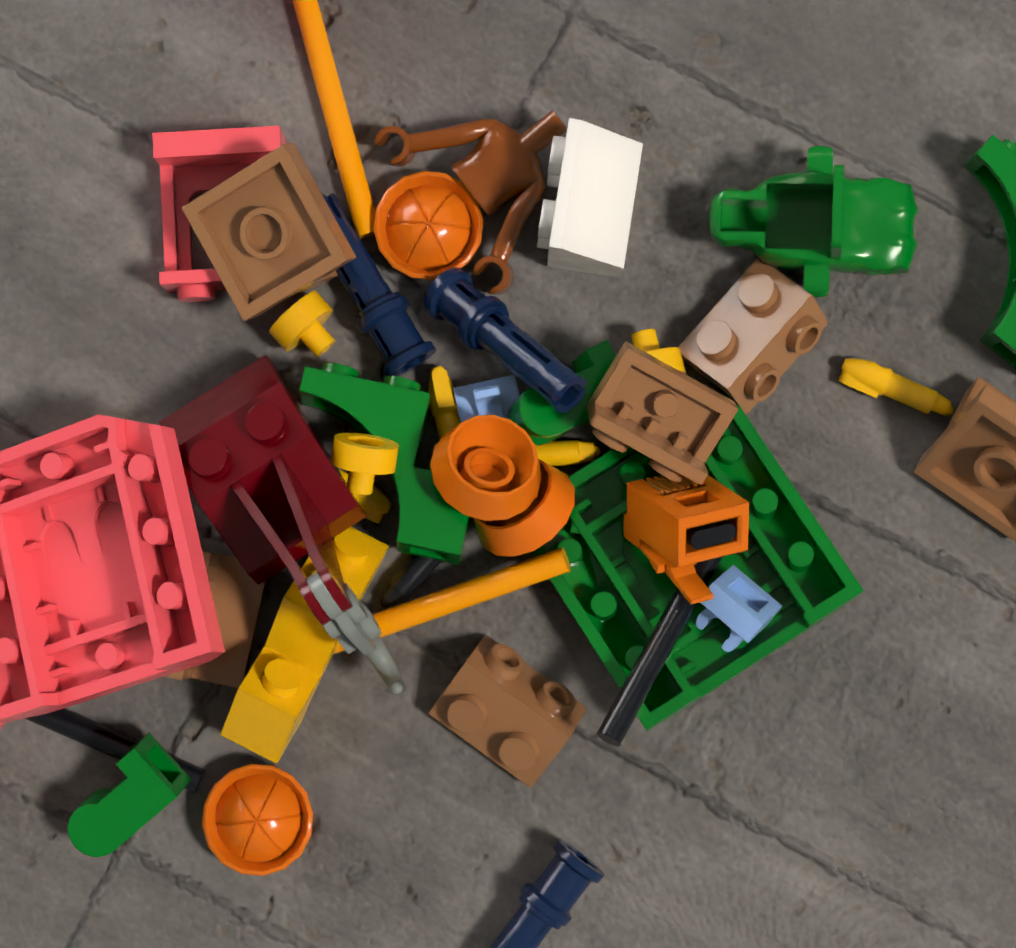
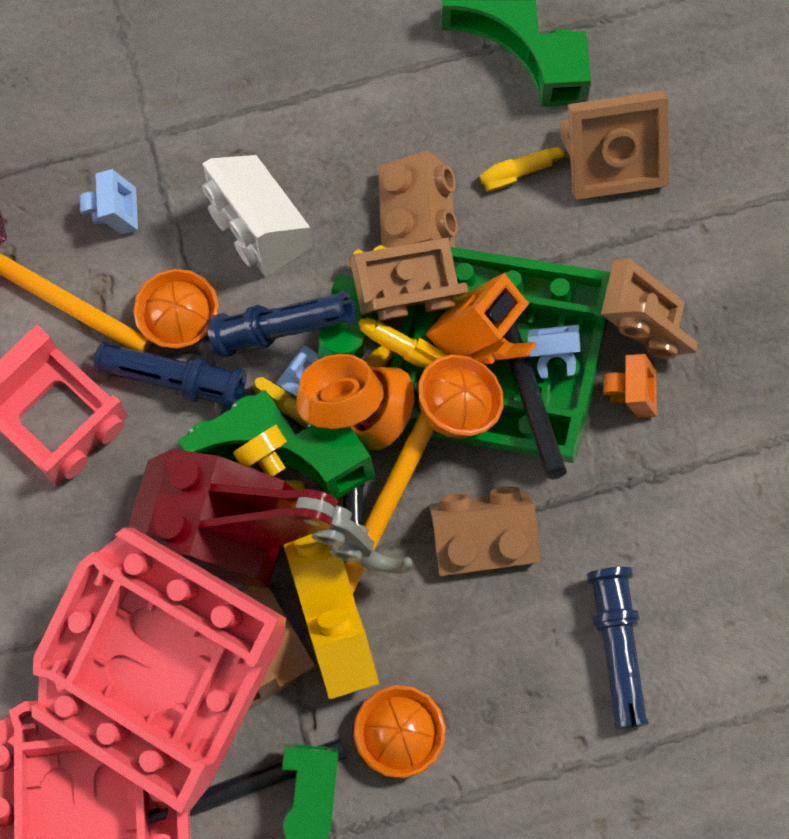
camera: 45 degrees left, 15 degrees down
(269, 232) = (86, 378): medium nougat bracket -> none
(304, 324) = (154, 425): yellow tile -> none
(467, 58) = (112, 202): none -> light blue tile
(494, 172) = (186, 245): dark orange piece -> none
(596, 578) = (460, 396): none -> orange hat
(601, 484) = (414, 351): none -> yellow piece
(780, 713) = (634, 387): none -> orange tile
(820, 222) = (393, 114): green piece -> none
(857, 654) = (646, 311): none -> medium nougat bracket

